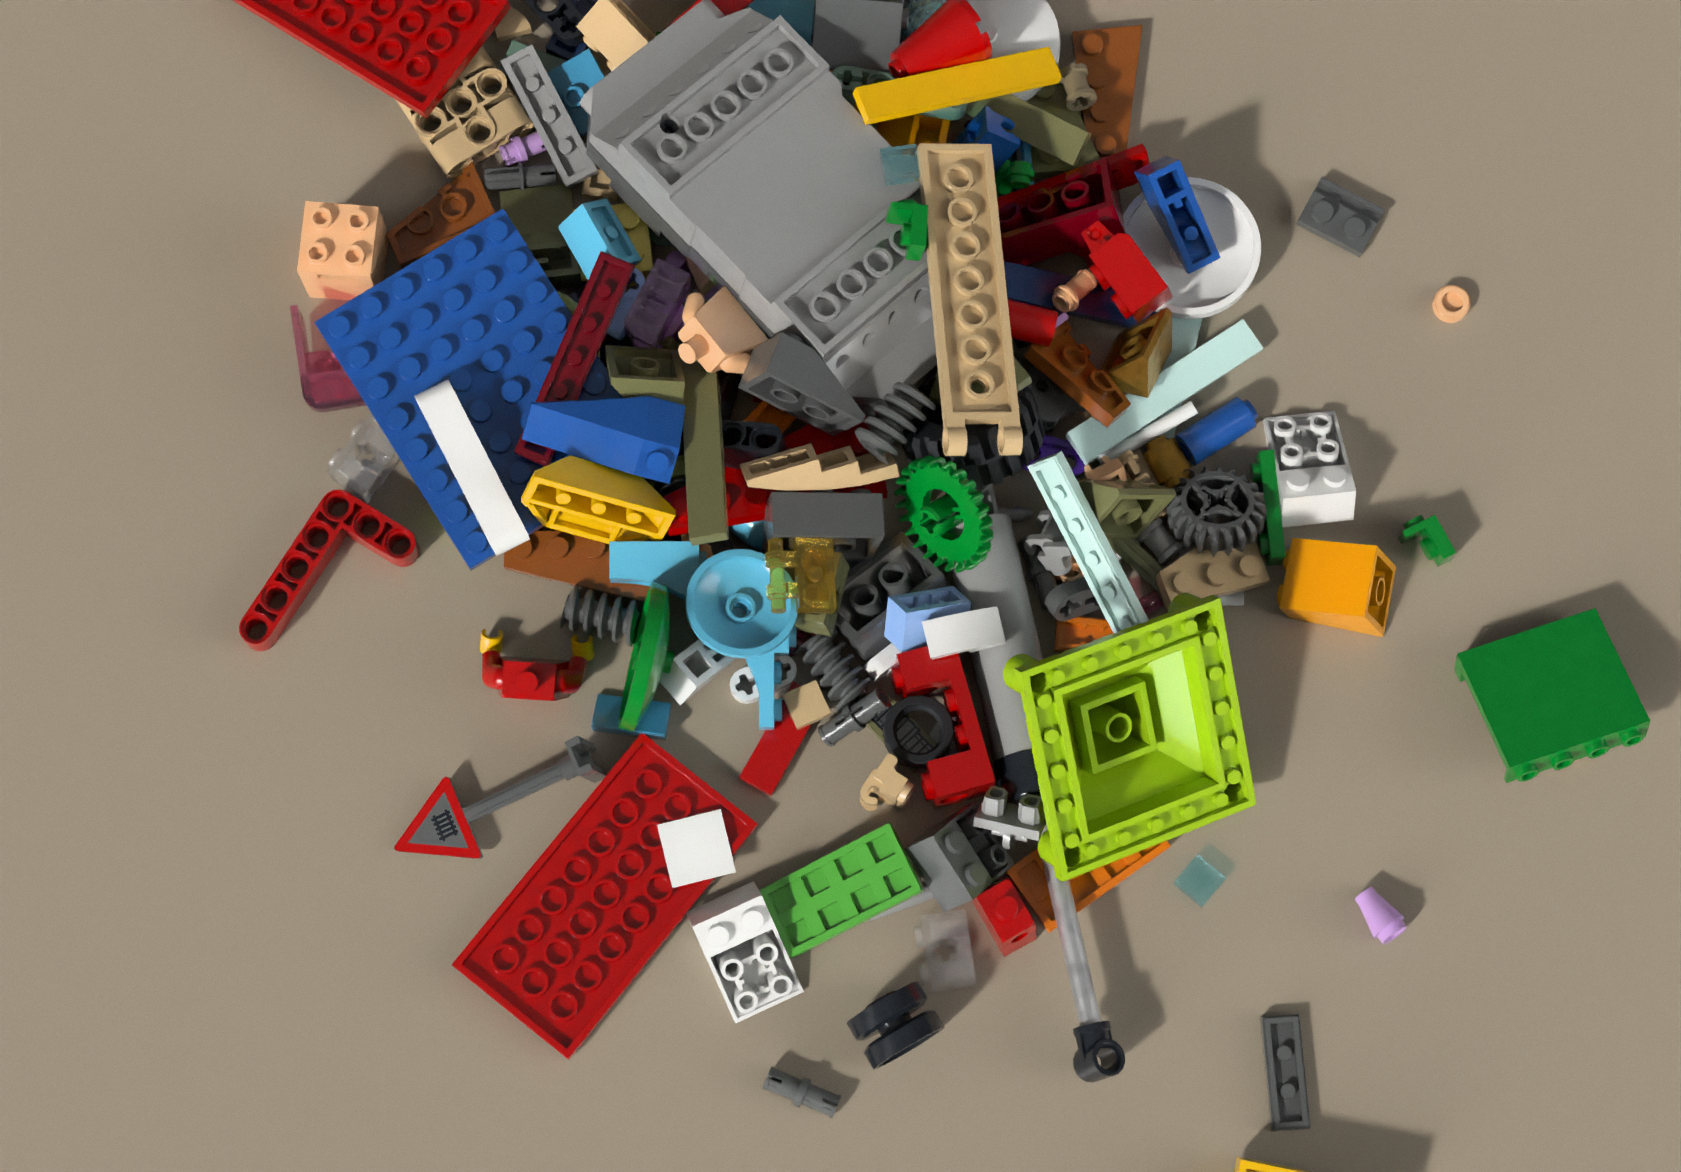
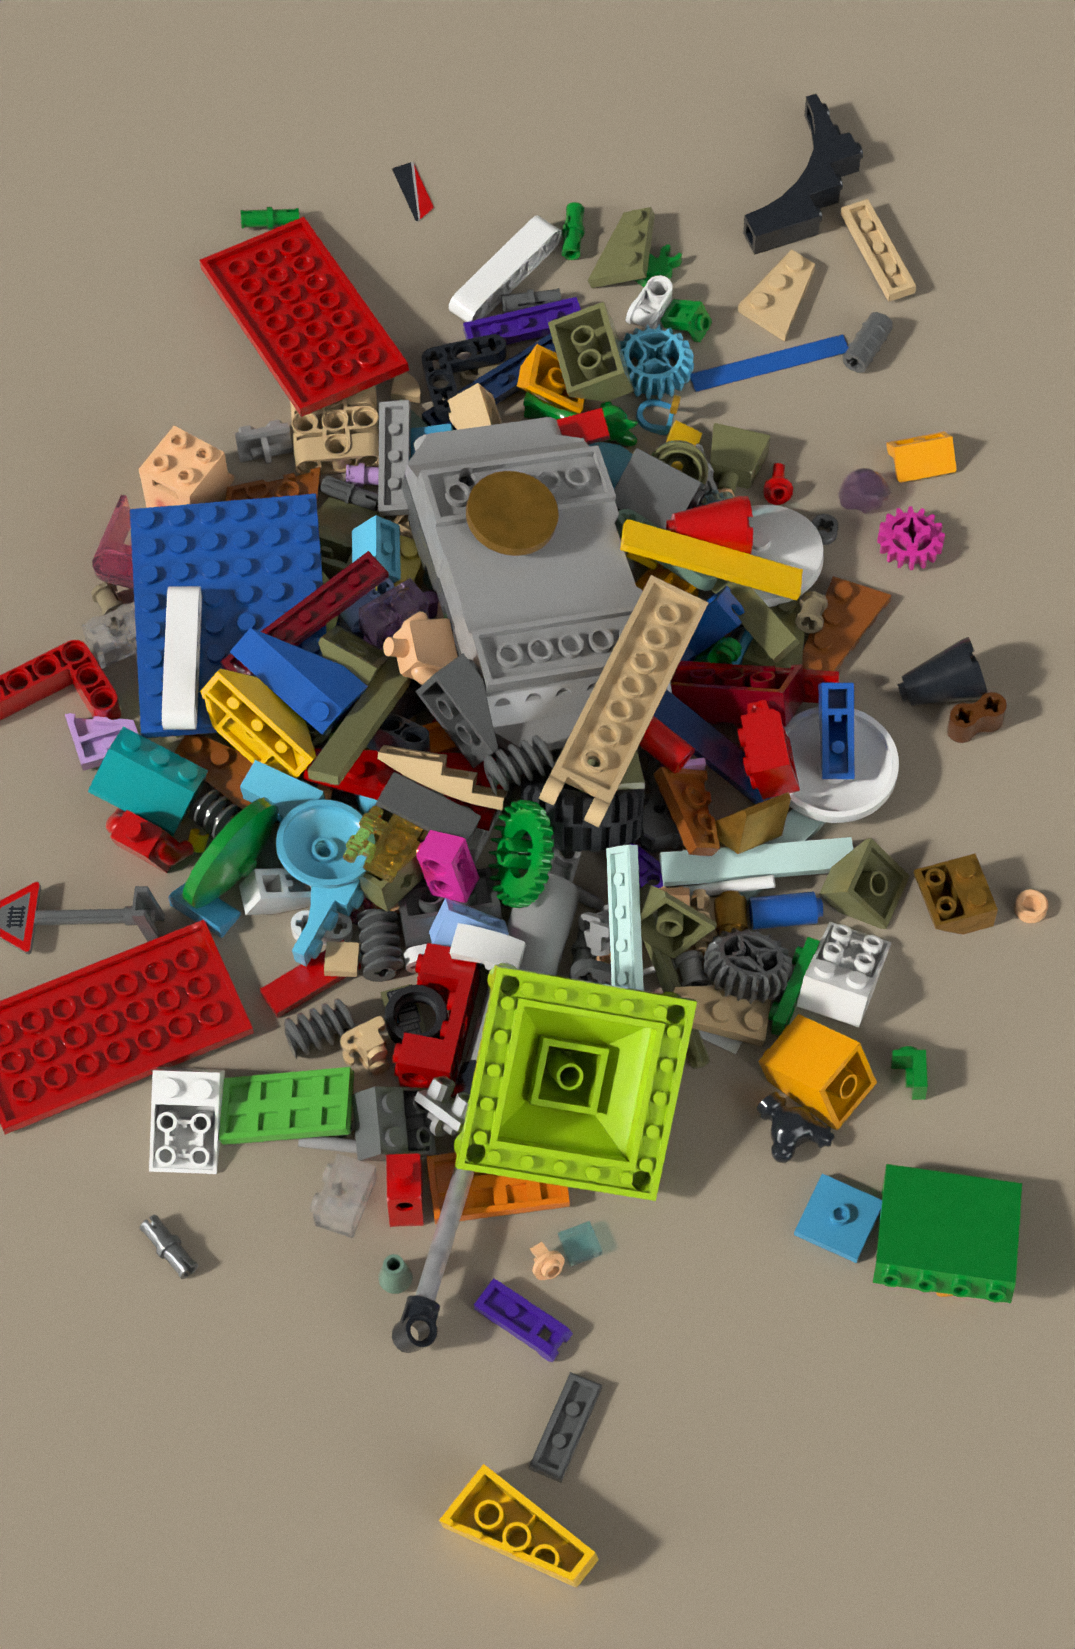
camera: 30 degrees right, 15 degrees down
(334, 426) = (107, 597): none -> dark tan bush
(395, 162) = (263, 441): none -> light grey hips
(419, 585) = (95, 737): none -> lavender wing
(501, 613) = (148, 780): none -> teal slope
(696, 848) = (194, 1023): white sticker -> none
(742, 144) = (512, 513): none -> pearl gold piece
(824, 789) = (318, 1027): none -> dark grey piece
(854, 717) = (373, 984): dark grey pin -> none
(872, 562) = (447, 866): none -> dark pink brick
(892, 1020) = (268, 1225): black wheel -> none
(900, 164) = (628, 586): clear light blue tile -> none
(914, 226) = (611, 622): green bracket -> none
(1034, 1015) = (395, 1275): none -> sand green cone
(1067, 296) = (722, 745): light nougat pin -> none
(1183, 920) = (547, 1263): none -> light nougat plate
(1187, 988) = (522, 1319): none -> dark purple plate
(1248, 95) = (945, 677): none -> black cone
(1282, 363) = (866, 884): none -> olive slope
(1298, 123) = (982, 716): none -> reddish brown axle
(1340, 217) = (974, 802): dark grey plate -> none
(1343, 659) = (791, 1127): none -> black animal
(1379, 330) = (957, 895): none -> pearl gold slope
(1380, 916) = (712, 1342): lavender cone -> none
(1433, 727) = (838, 1218): none -> dark azure plate

